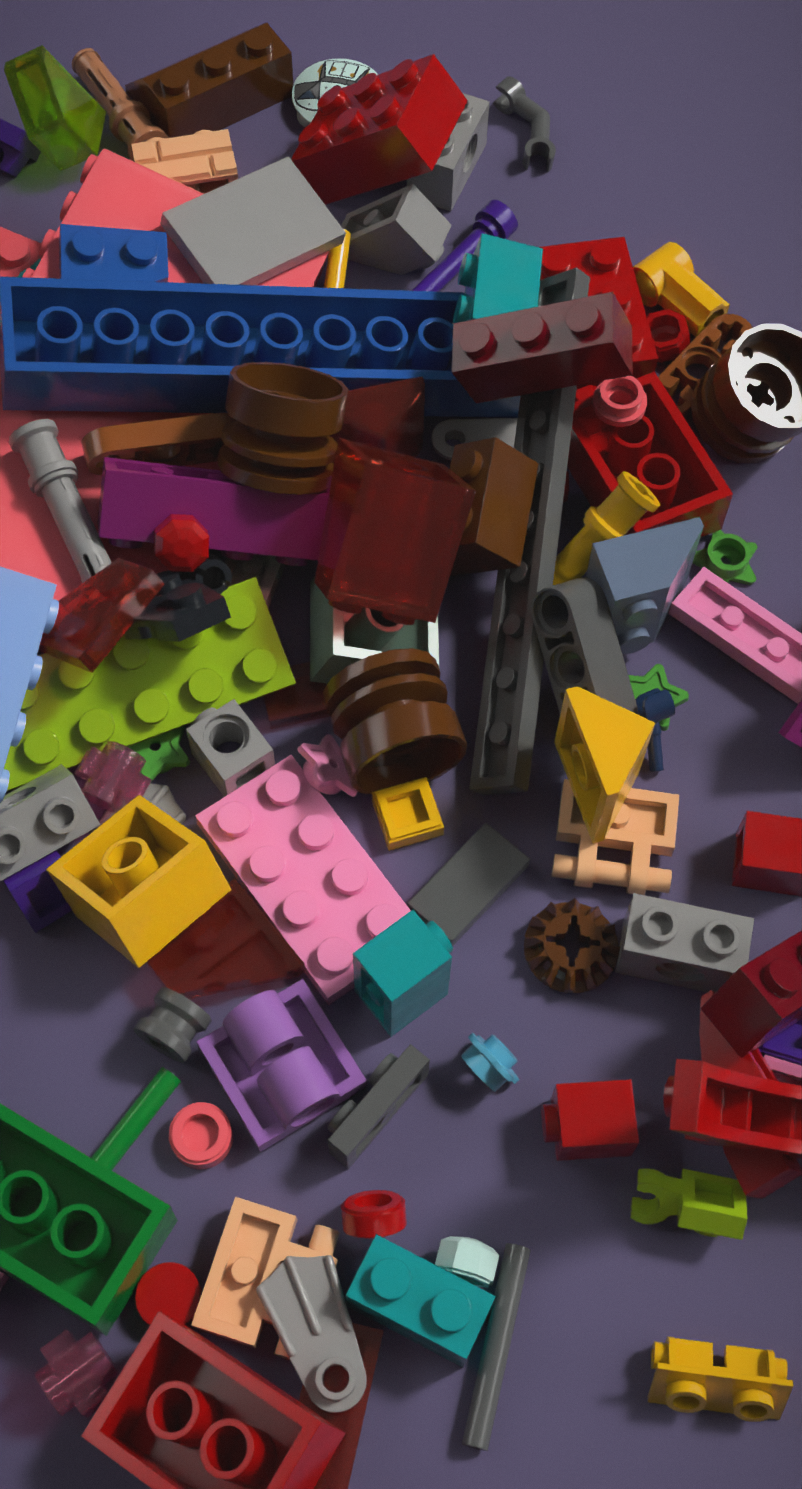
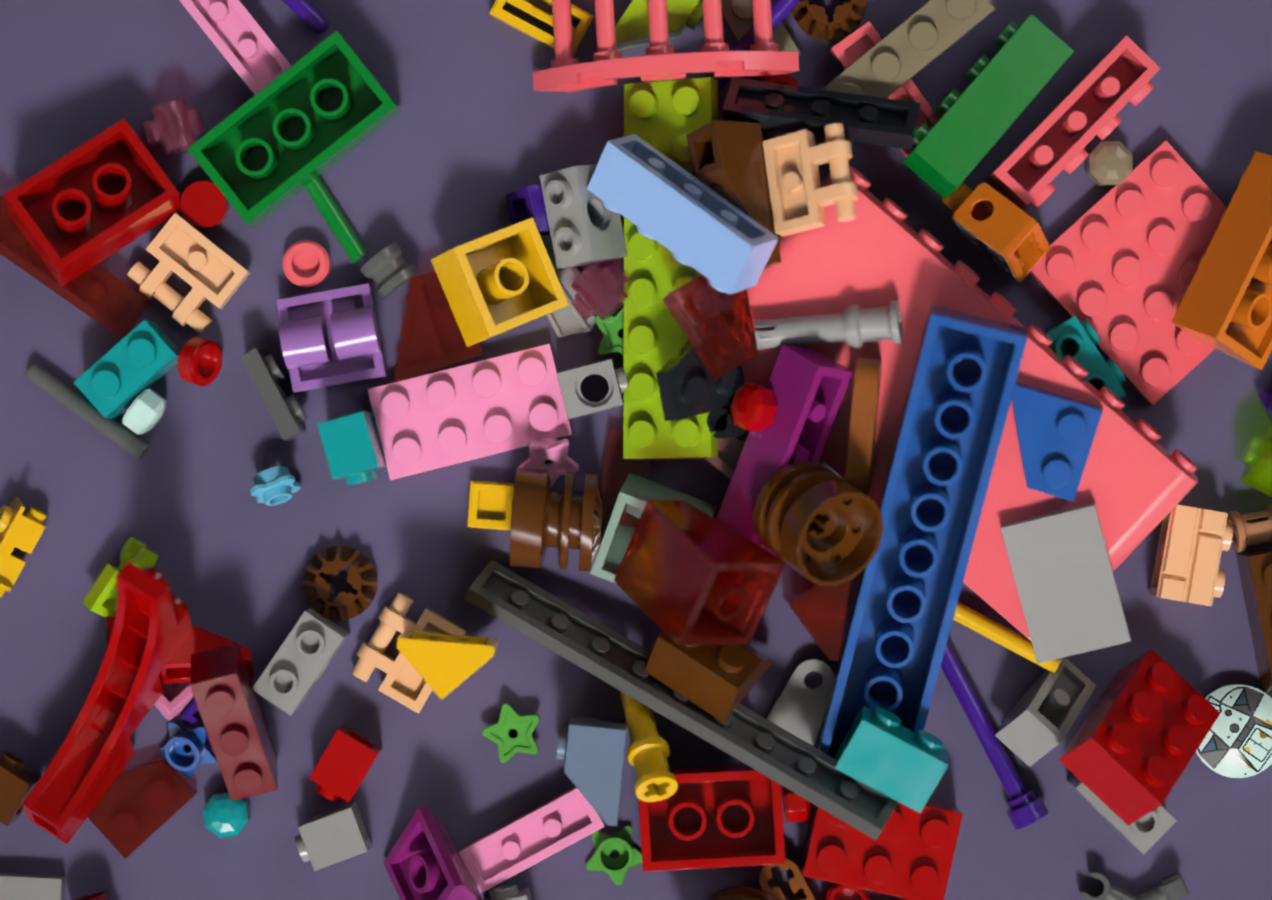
camera: 120 degrees right, 25 degrees up
(315, 1327) = (140, 293): light grey piece -> none
(469, 882) = (416, 527): dark grey tile -> none
(543, 348) = (805, 762): dark red brick -> none
(581, 642) = (547, 687): dark grey beam -> none
(591, 1120) = (204, 537): red brick -> none
(622, 390) = (762, 831): coral plate -> none
(655, 706) = (495, 725): dark blue hand -> none

